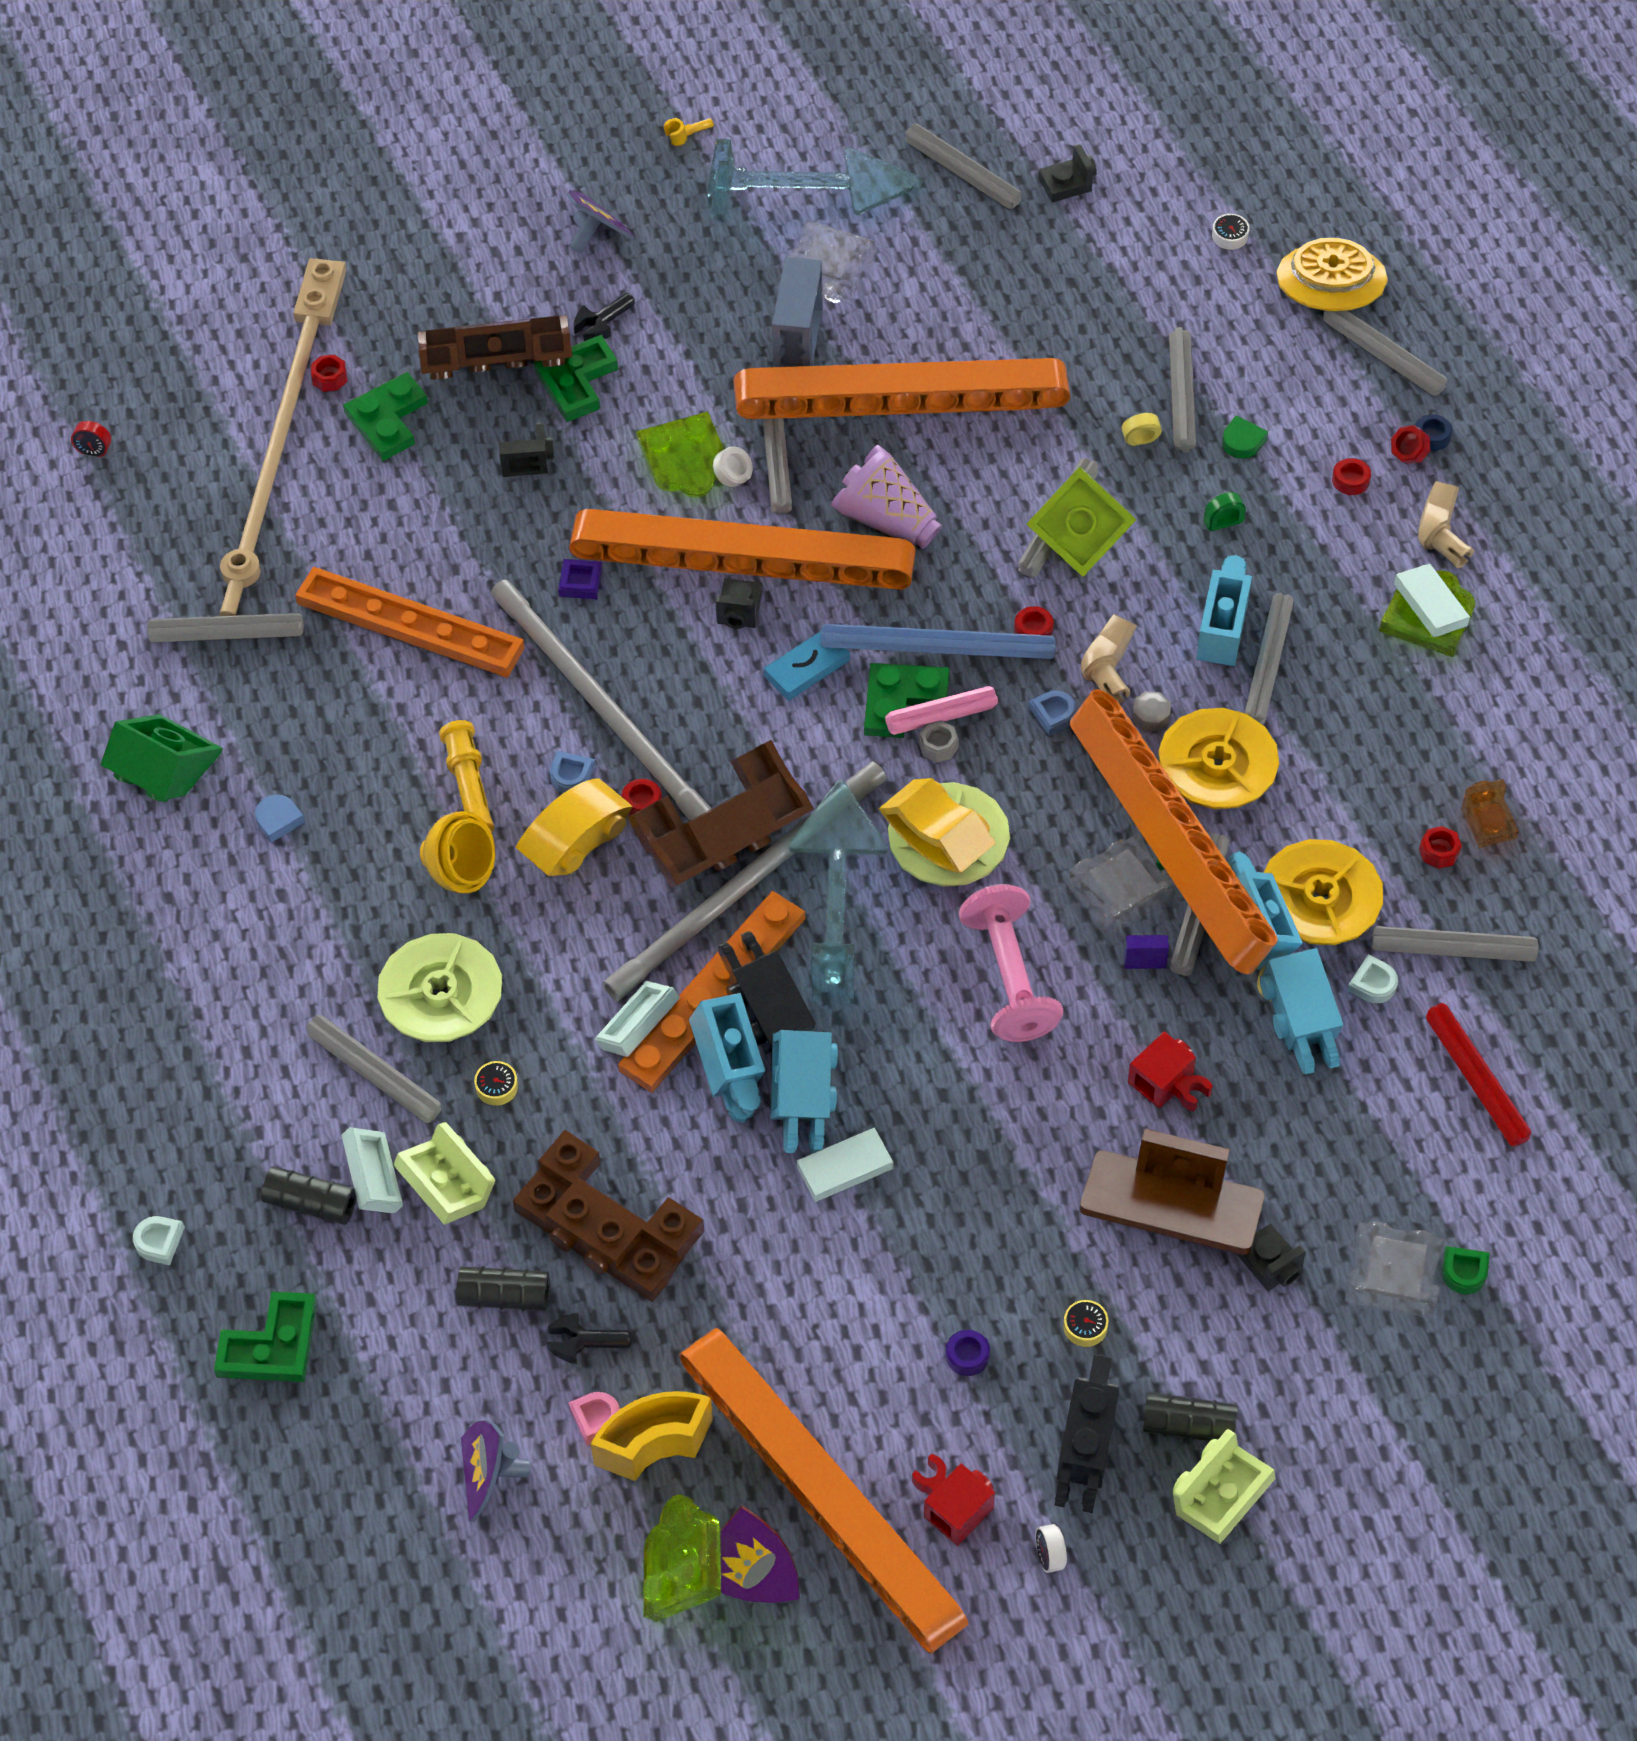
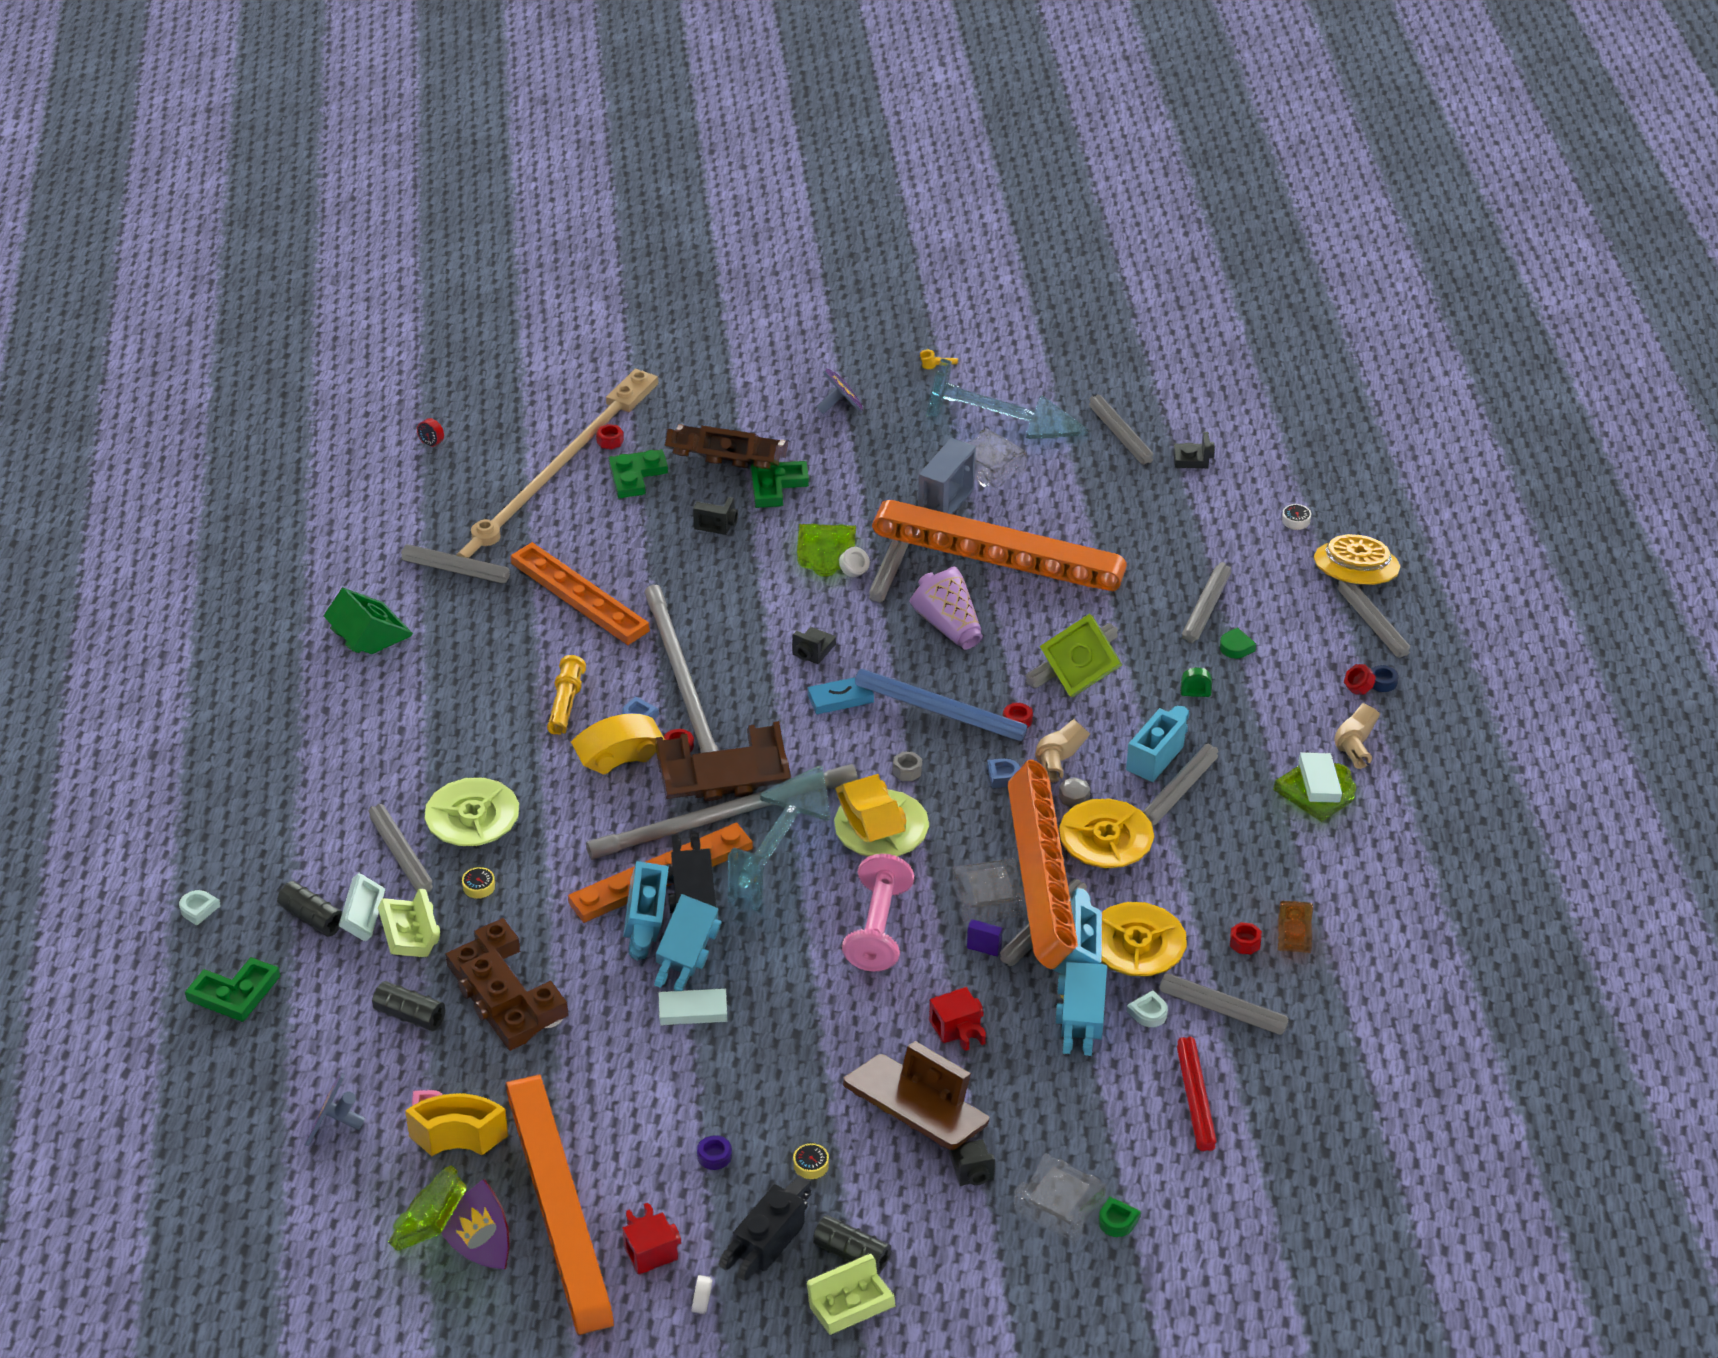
camera: 20 degrees right, 15 degrees down
(277, 816) = (424, 682): medium blue tile -> none
(459, 852) = (539, 735): yellow piece -> none
(580, 579) = (711, 601): dark purple tile -> none
(583, 1338) = (447, 1056): black bar -> none
(600, 319) = (804, 453): black bar -> none
(637, 1018) = (596, 871): light aqua tile -> none
(743, 548) = (835, 612): orange beam -> none
(897, 686) = (895, 726): green plate -> none
(941, 710) = (921, 746): bright pink axle -> none
(1141, 429) = (1161, 616): light yellow tile -> none
(1351, 476) = (1305, 689): red tile -> none

